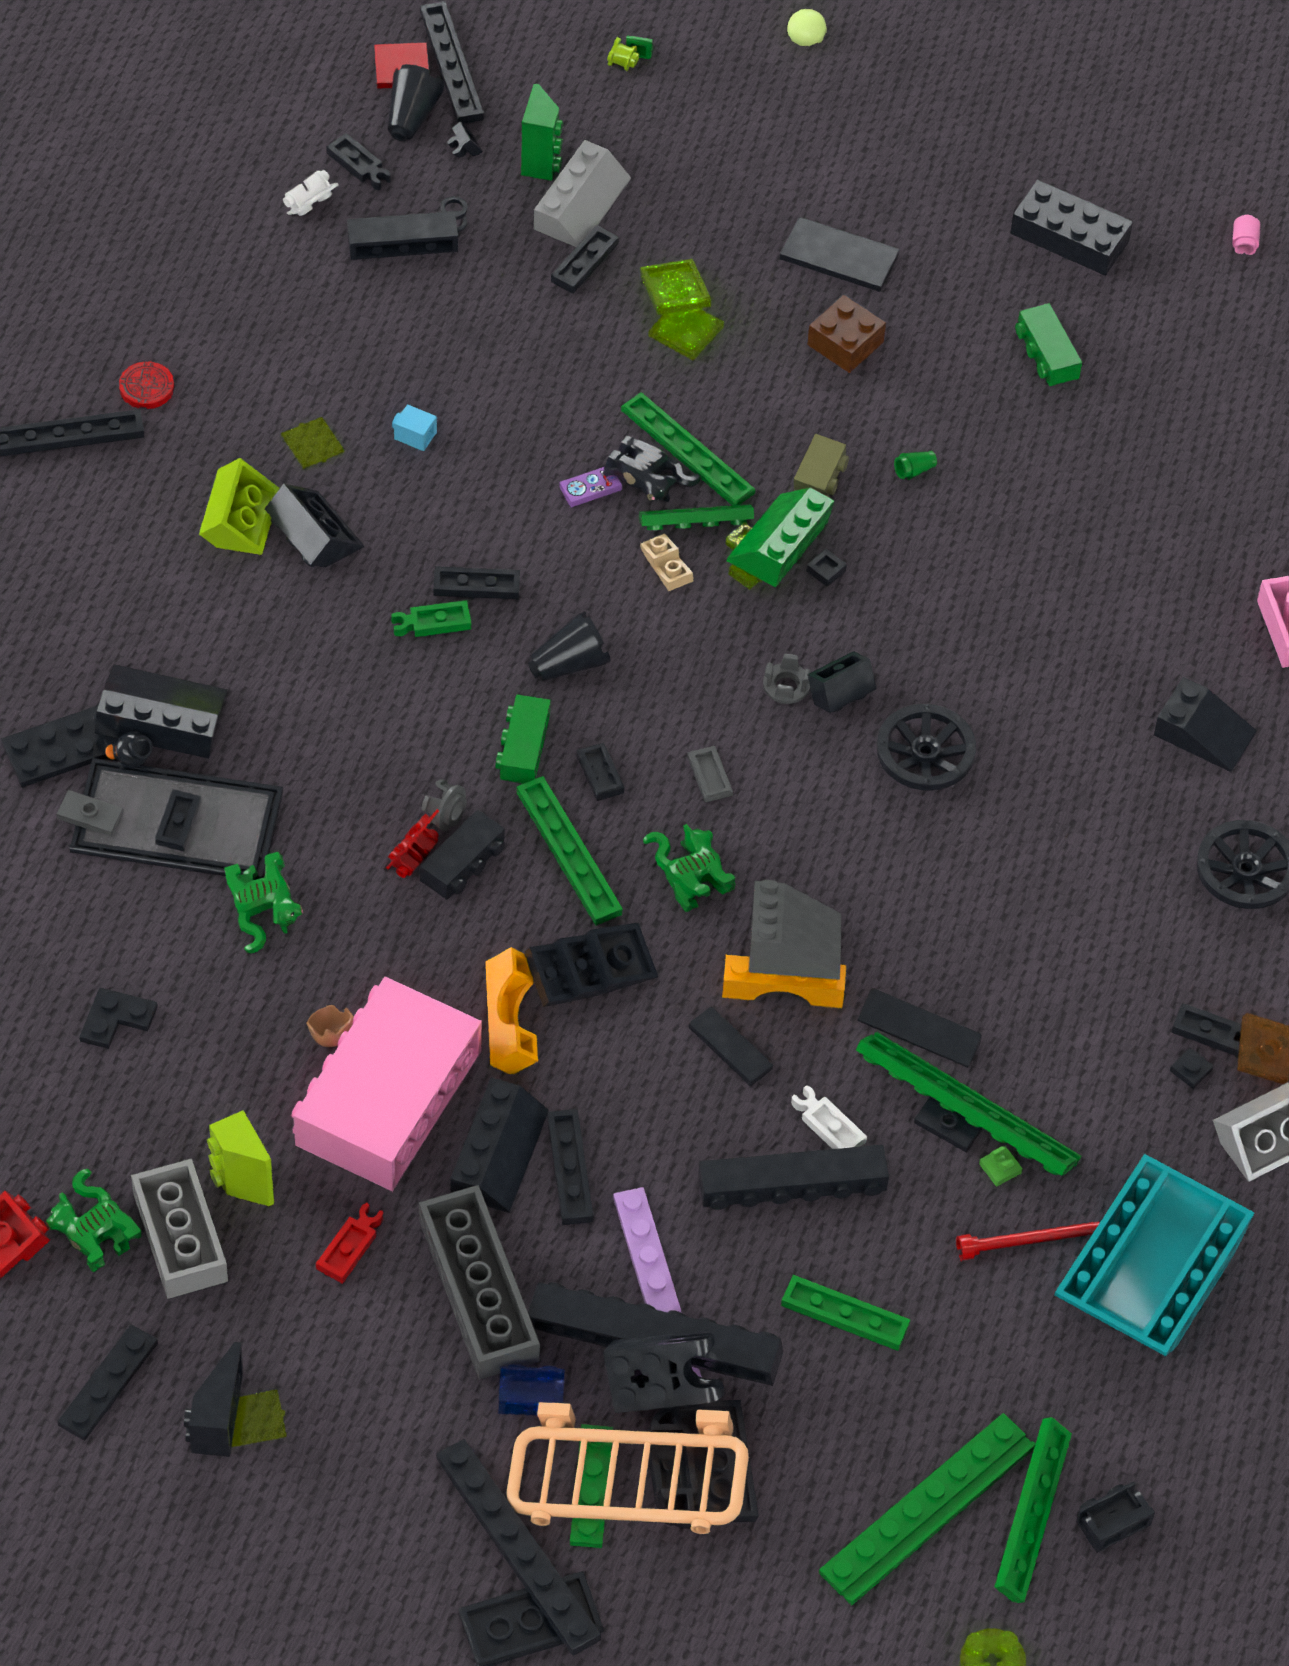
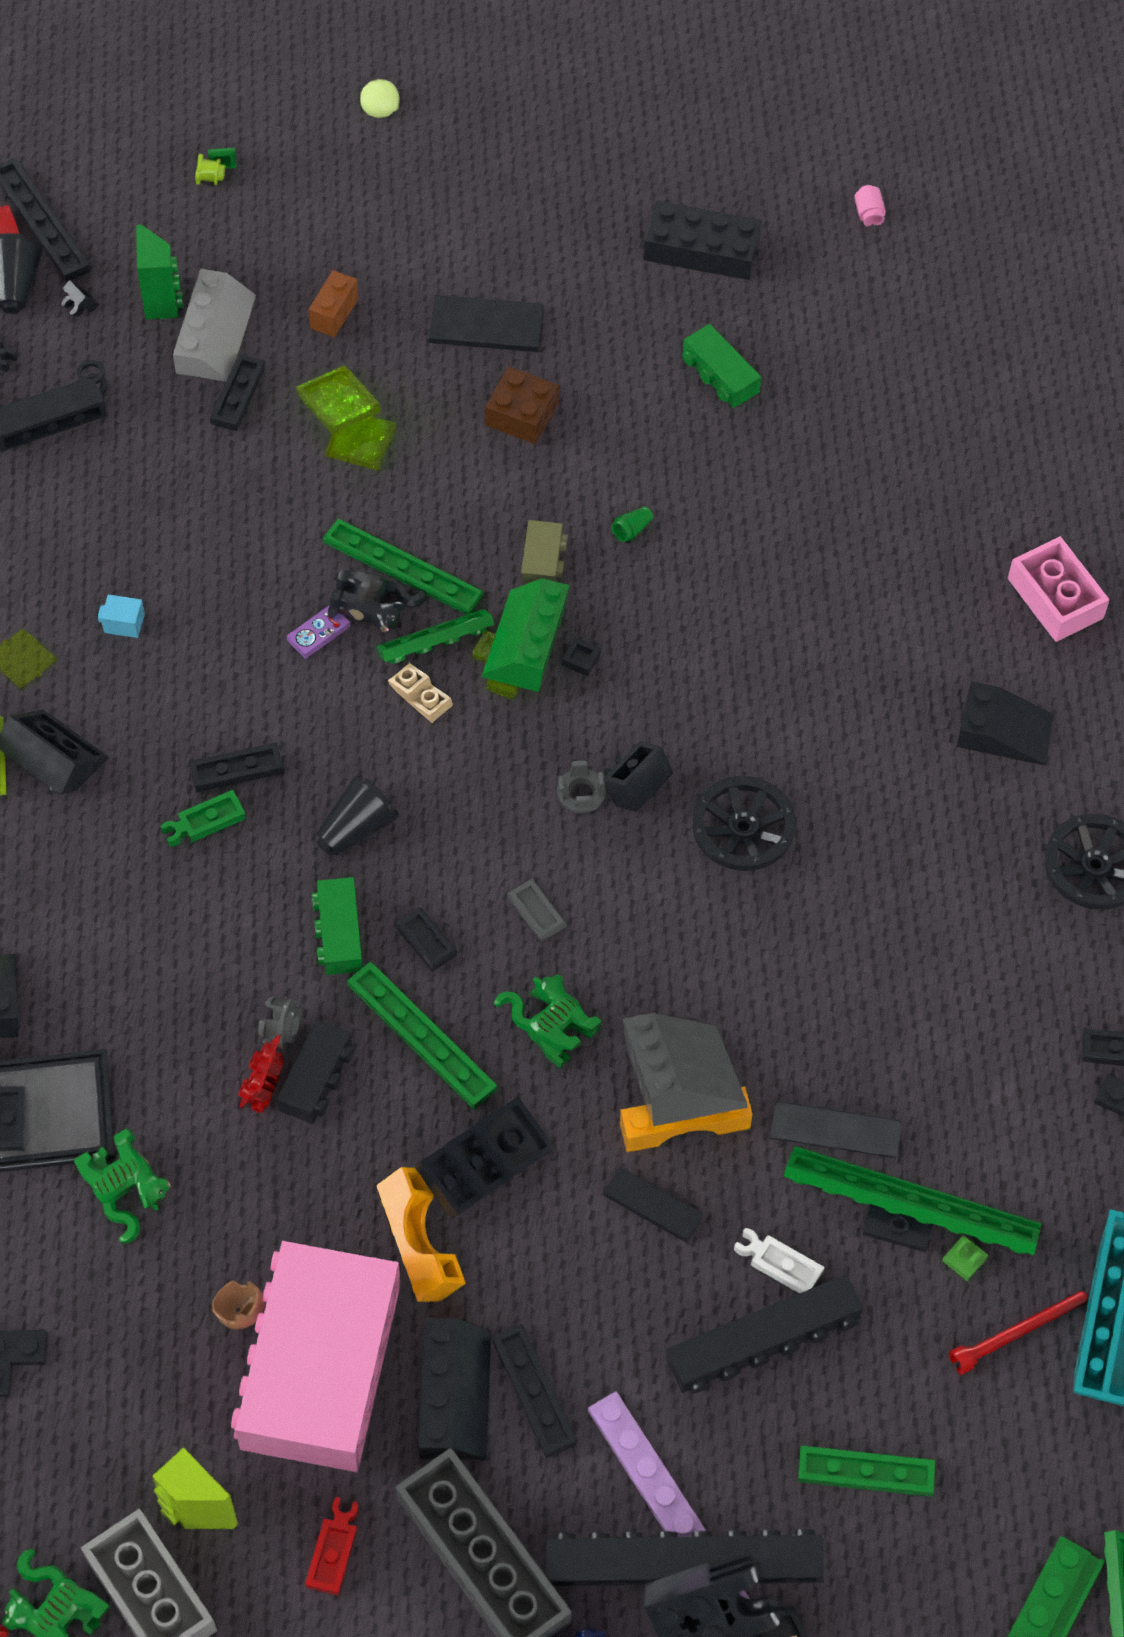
camera: 15 degrees left, 5 degrees up
(700, 201) = (333, 303): none -> dark orange brick

